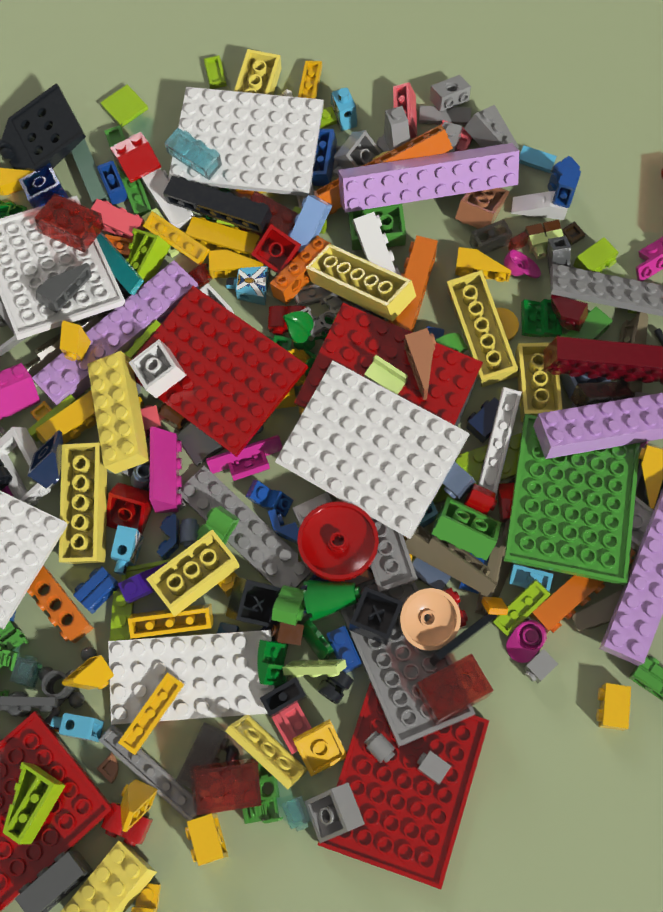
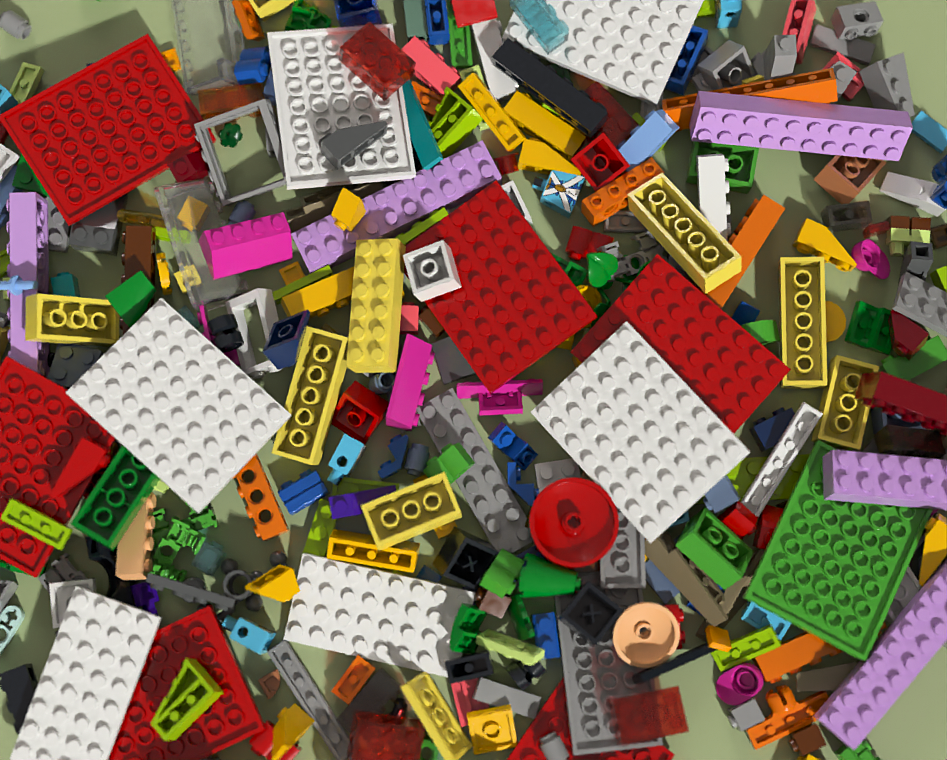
camera: 10 degrees right, 10 degrees up
(151, 713) = (329, 643): yellow plate -> none
(183, 740) = (353, 679): none -> orange plate
(315, 714) = (499, 695): none -> light grey tile
(386, 375) = (679, 355): yellowish green panel -> none
(419, 350) = (725, 345): nougat slope -> none
(575, 657) = (786, 715): none -> orange plate
(600, 671) = (806, 739): none -> reddish brown brick

